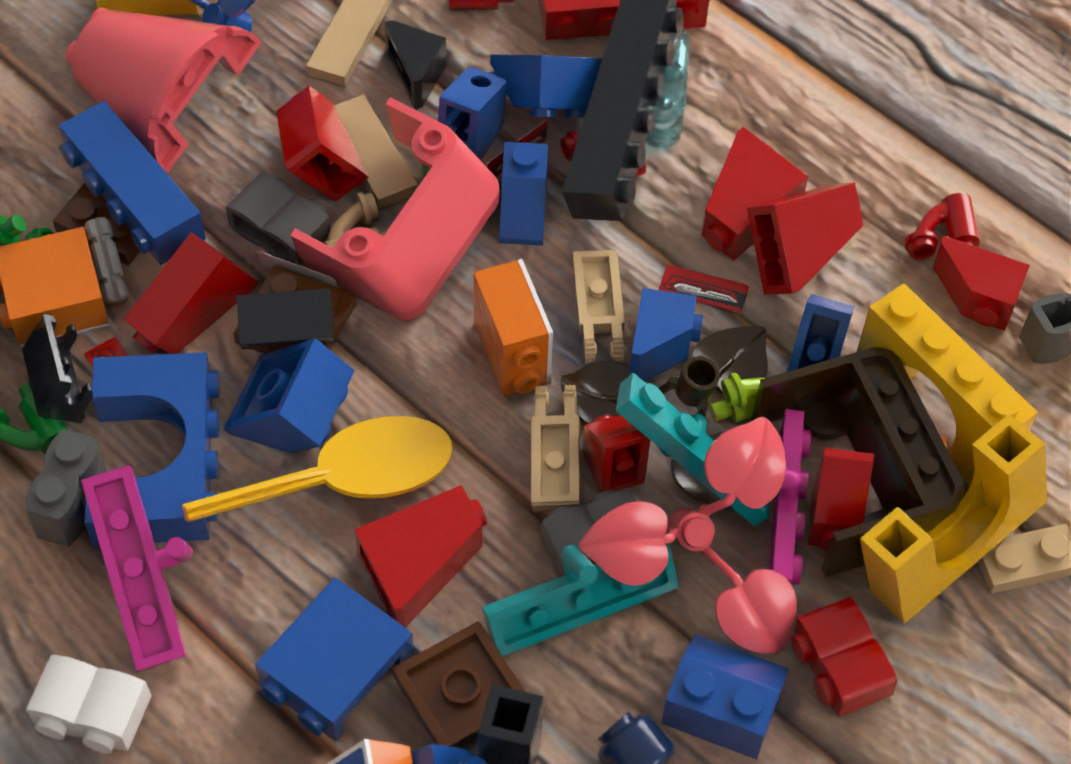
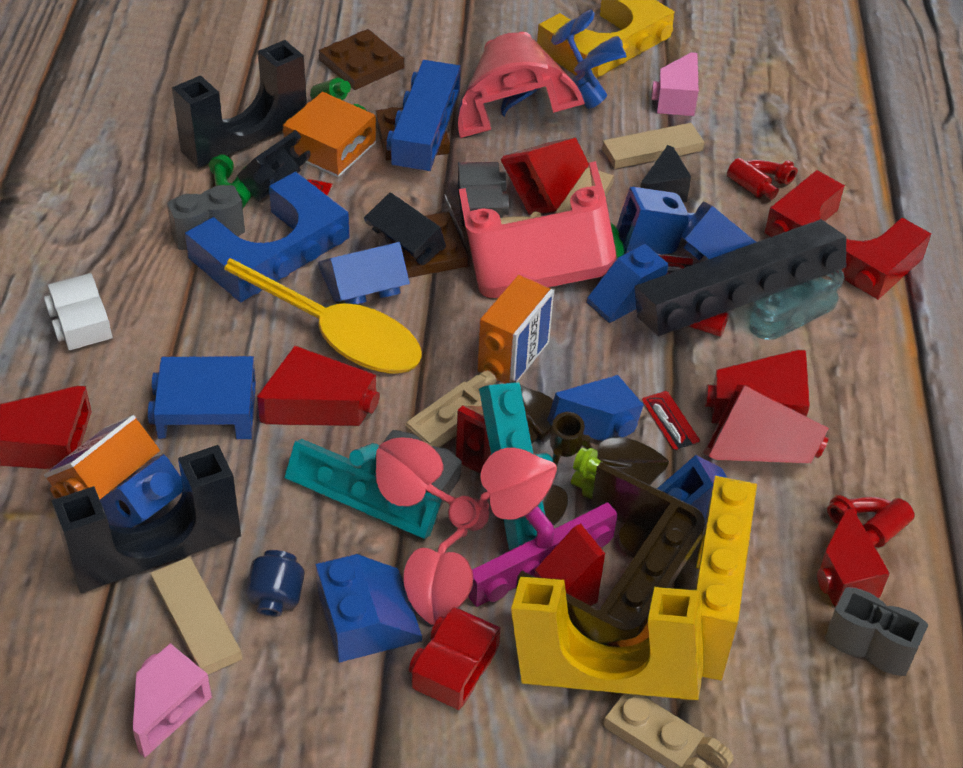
camera: 50 degrees right, 10 degrees down
(106, 261) = (370, 143): light grey axle -> none
(137, 567) = (175, 270): dark pink plate -> none
(187, 297) = (367, 181): red slope -> none
(452, 684) = (256, 466): reddish brown plate -> none
(599, 301) = (601, 360): tan hinge -> none

